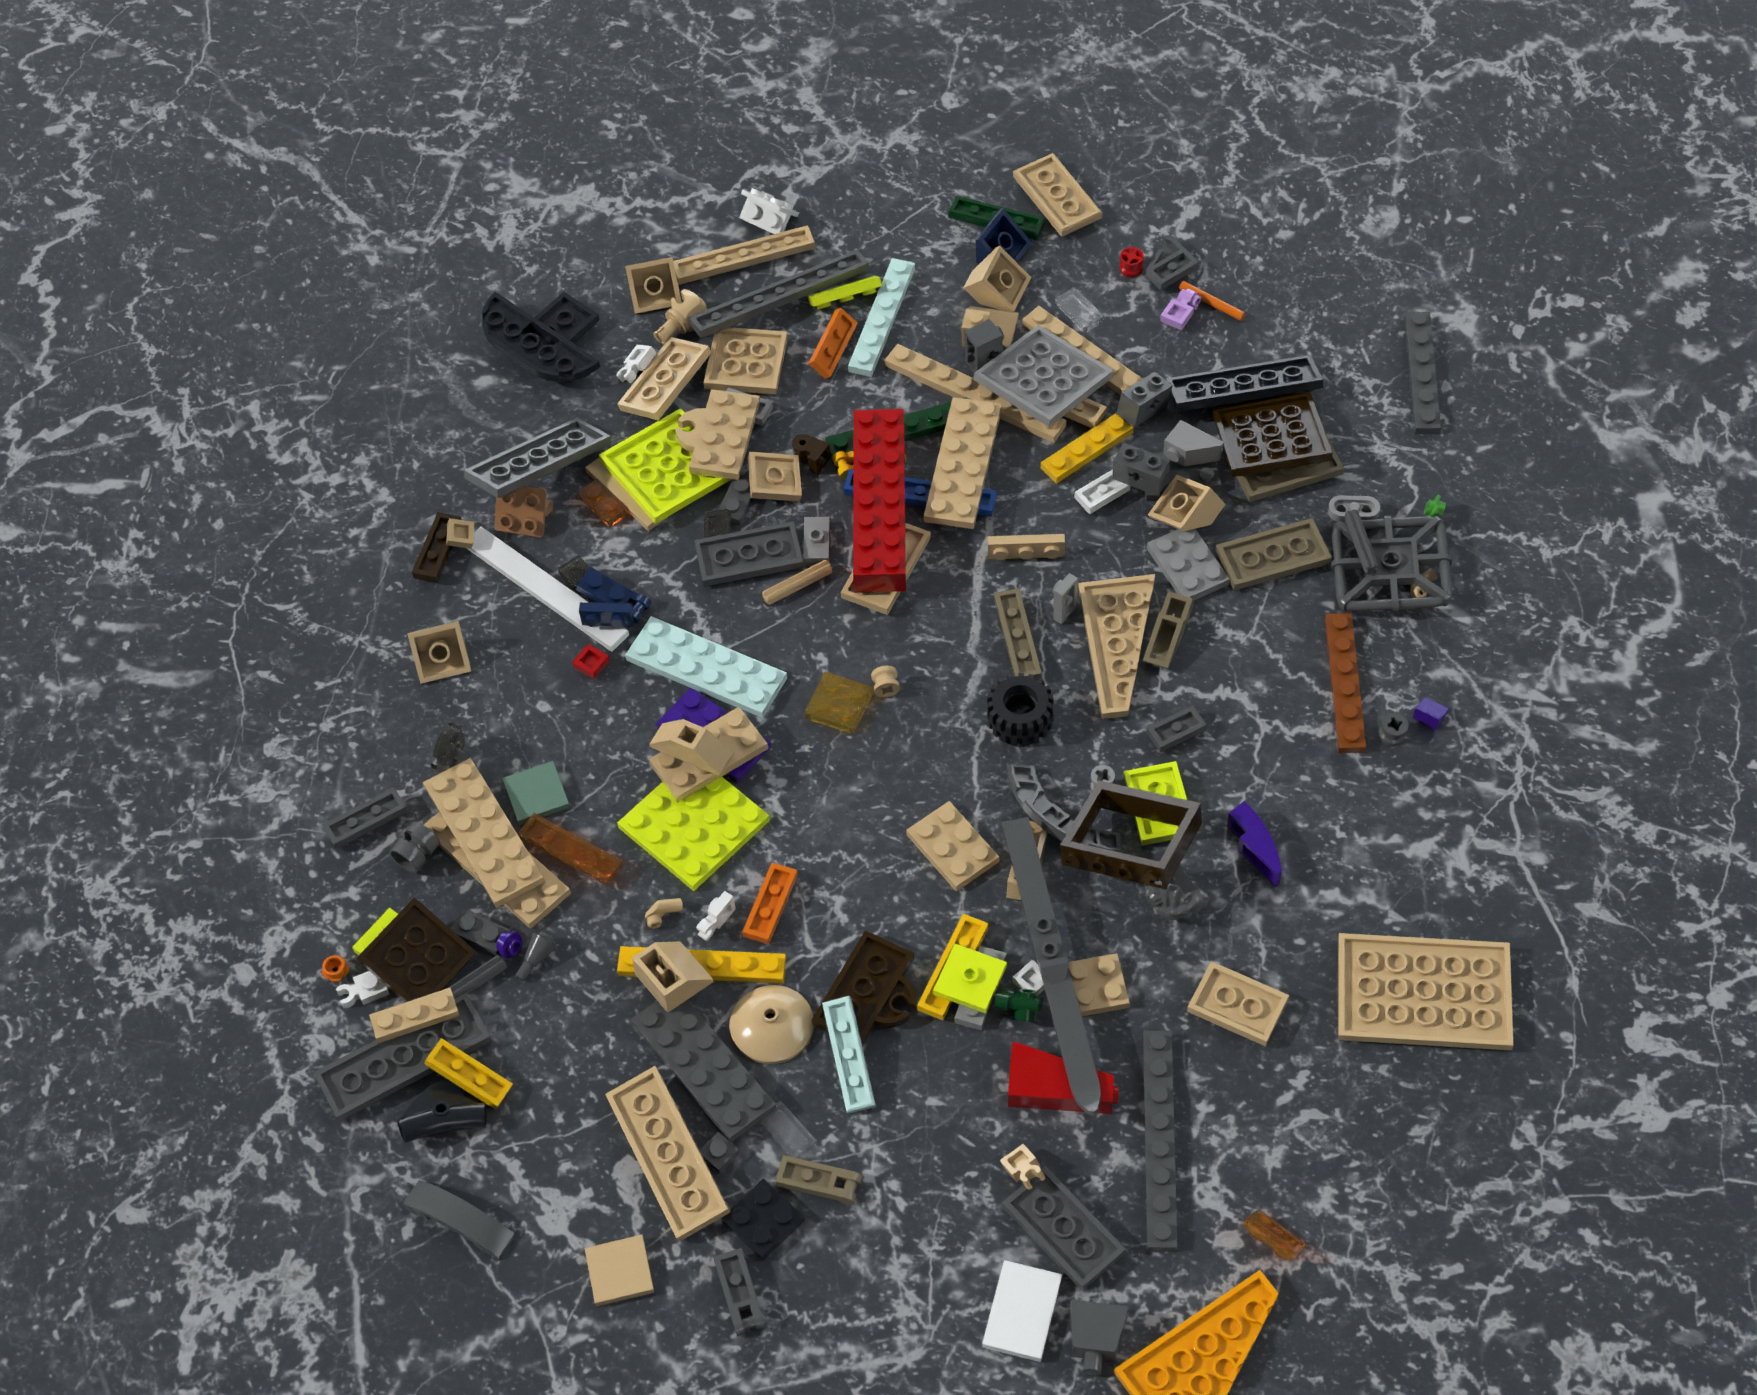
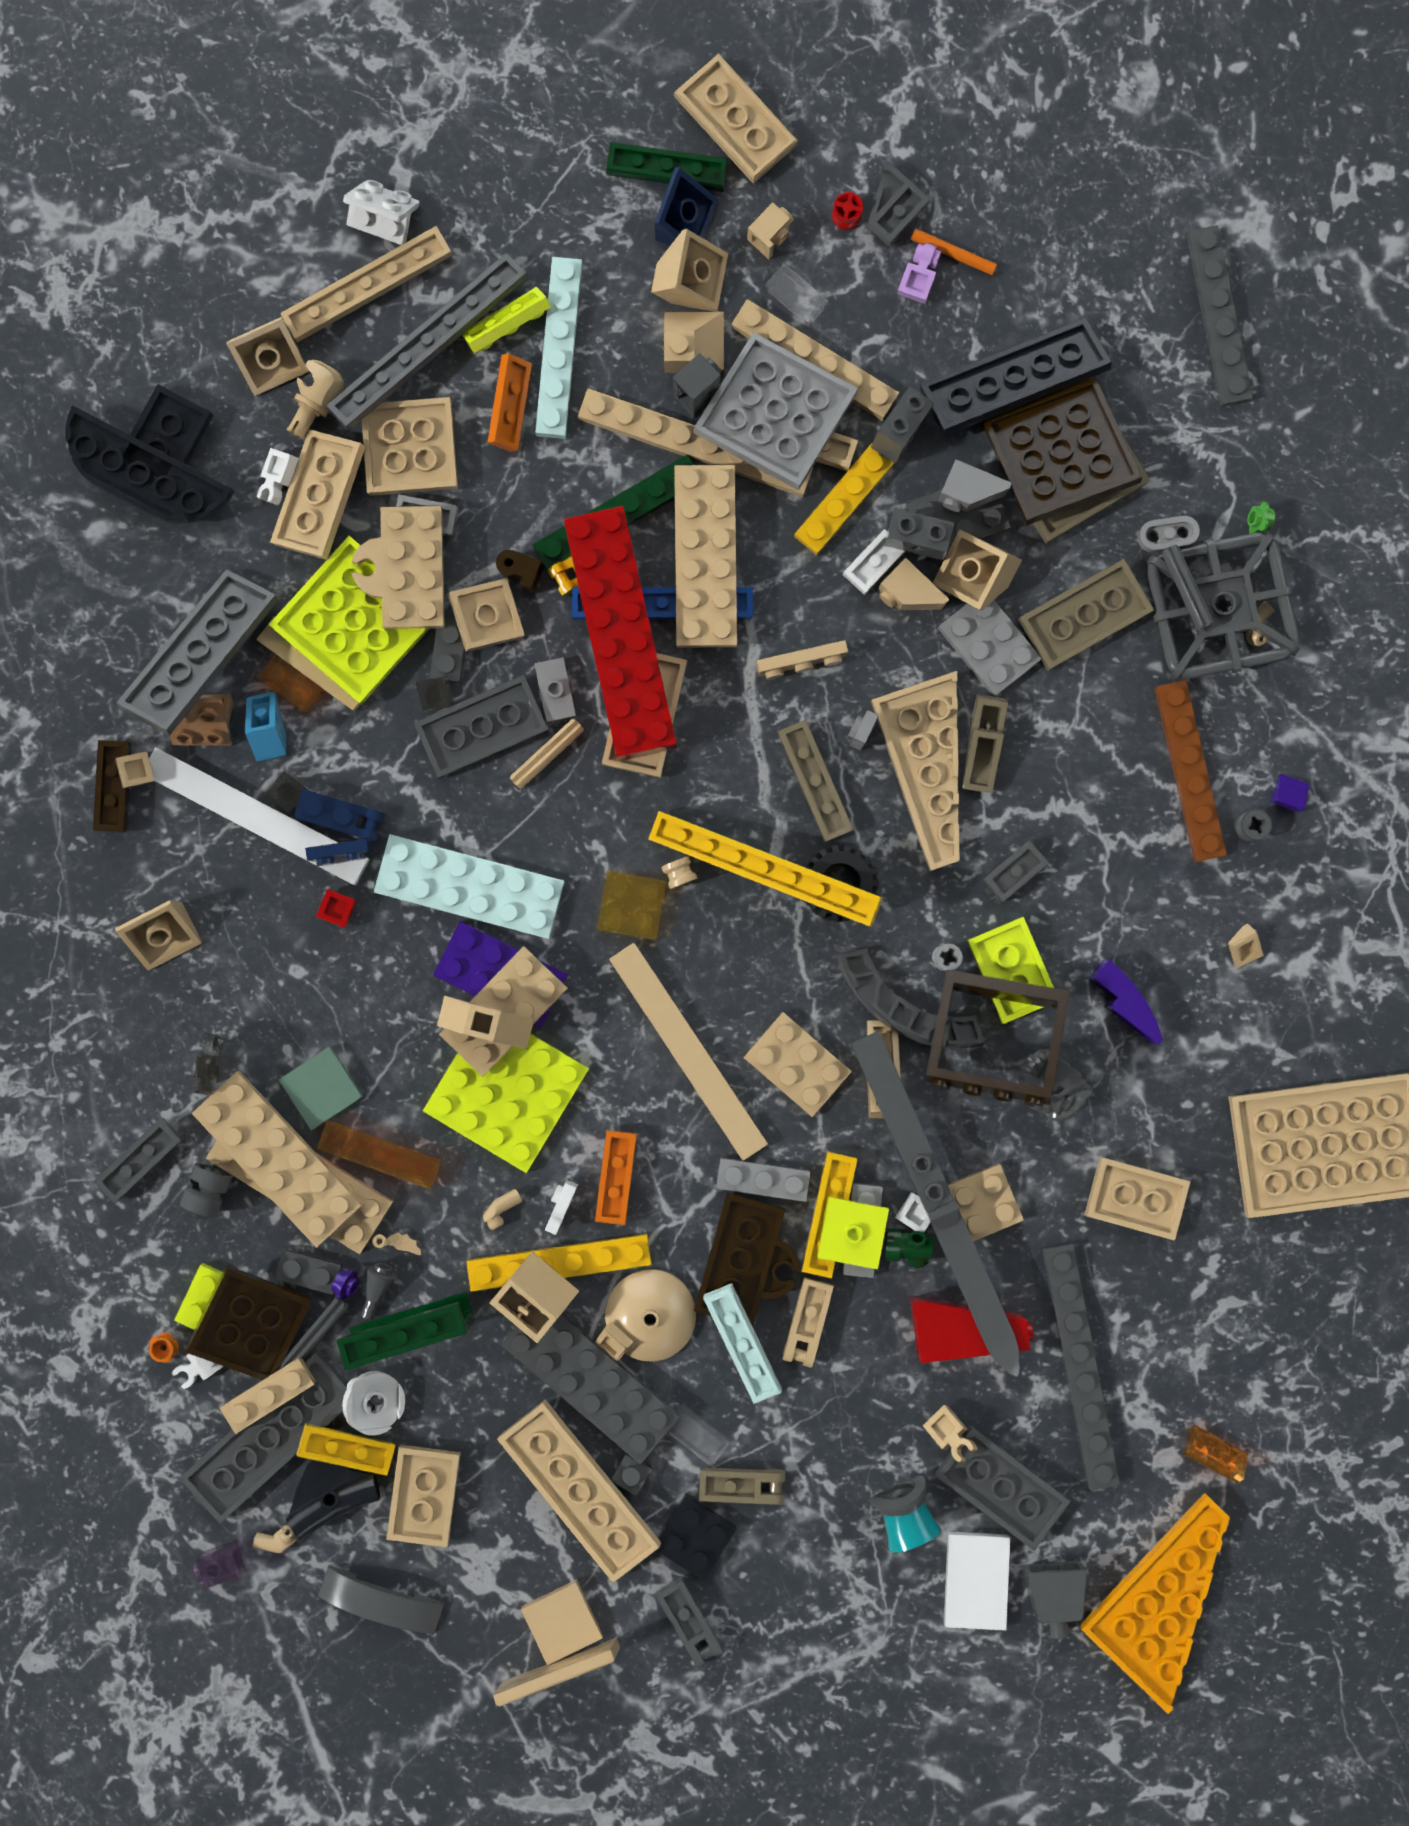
camera: 20 degrees left, 30 degrees up
(326, 1162) = (226, 1558): none -> clear purple brick
(381, 1149) = (275, 1543): none -> tan arm
(518, 1034) = (385, 1414): none -> white plate
(524, 1132) = (423, 1496): none -> tan plate
(552, 975) = (406, 1331): none -> dark green window
(566, 923) = (399, 1241): none -> tan piece
(573, 526) = (265, 726): none -> dark azure slope
(603, 1297) = (556, 1672): none -> tan tile
(733, 1032) = (613, 1342): none -> tan tile
(860, 821) = (688, 1051): none -> tan tile
(901, 930) = (763, 1179): none -> light grey plate
(913, 1051) = (808, 1321): none -> tan plate
(959, 679) = (766, 868): none -> yellow plate
(964, 1224) = (906, 1515): none -> hat
(1066, 263) = (770, 229): none -> tan brick
(1128, 513) = (911, 590): none -> tan slope
(1372, 822) = (1245, 946): none -> tan slope

